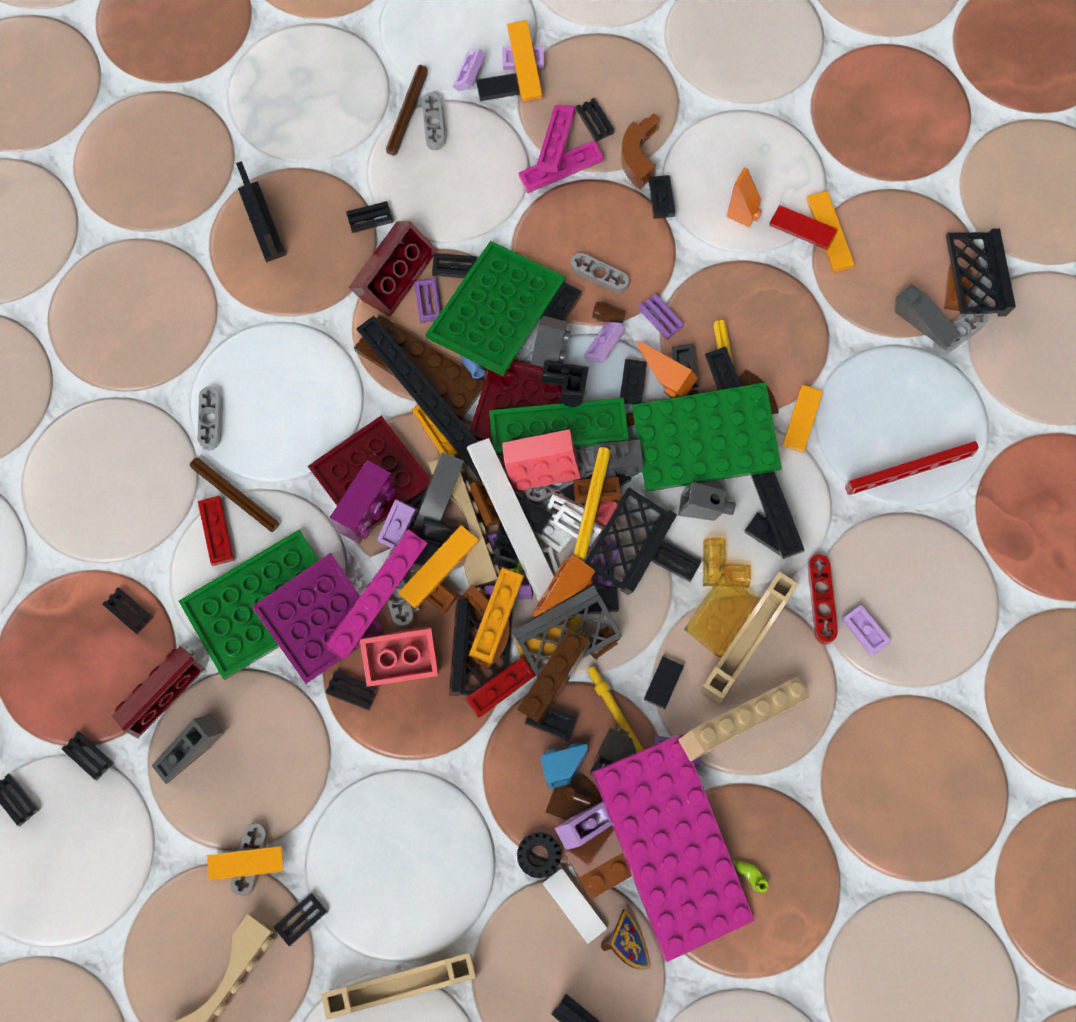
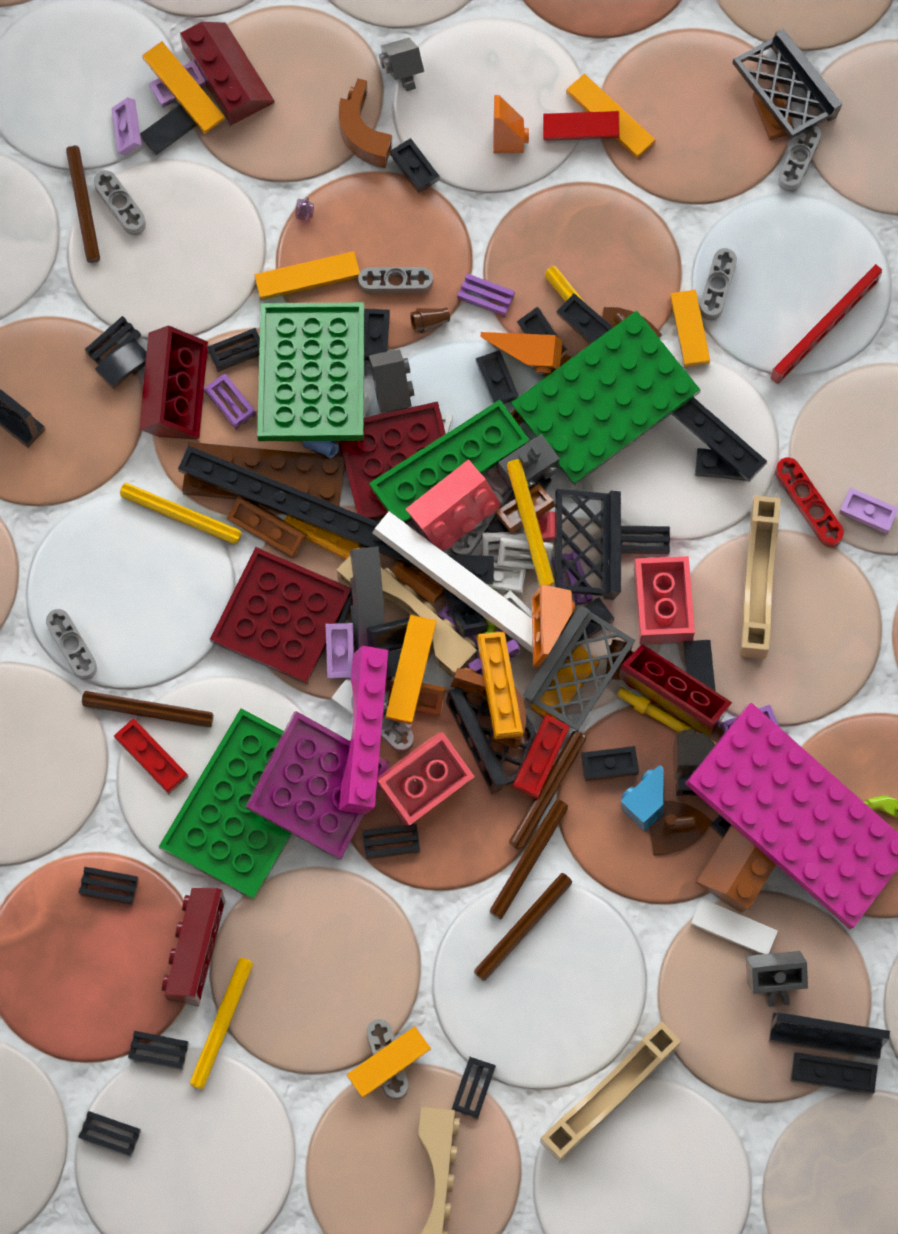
camera: 30 degrees left, 0 degrees up
(138, 765) = (221, 1023): none -> yellow axle
(188, 747) = (259, 986): dark grey slope -> none
(343, 364) = (180, 513): none -> yellow axle
(363, 502) = (298, 643): magenta brick -> none
(365, 234) = (122, 363): none -> black slope
(399, 405) = (267, 526): none -> dark orange tile
(411, 813) = (523, 926): none -> reddish brown axle
(446, 762) = (528, 859): none -> reddish brown axle
(478, 724) = (551, 785): none -> reddish brown axle
(536, 238) = (307, 275): none -> light orange tile
(551, 864) = (677, 882): black tyre -> none
(554, 676) = (592, 715): reddish brown brick -> none
(556, 138) = (268, 156): dark pink plate -> none
(562, 189) = (304, 209): none -> clear purple plate
(564, 64) = (226, 70): none -> dark red slope
(570, 377) = (432, 405): black brick -> none
(572, 162) = (288, 185): dark pink plate -> none
(583, 826) = (702, 845): lavender slope -> none
(585, 964) = (777, 973): none -> dark grey brick
(587, 106) = (277, 103): black tile -> none
(604, 342) = (443, 351): lavender plate -> none
(628, 943) = (805, 933): shield -> none
(632, 690) = (674, 690): none -> dark red slope
(663, 615) = (663, 600): none -> coral brick
(694, 116) = (402, 61): none -> dark grey brick
(704, 502) = (640, 465): dark grey torso -> none
(715, 564) = (693, 528): clear yellow brick -> none
(721, 615) = (720, 569): clear yellow tile -> none
(743, 718) = (800, 656): tan arch -> none
(842, 405) = (715, 273): none -> light grey beam
(925, 316) = (757, 159): dark grey slope -> none

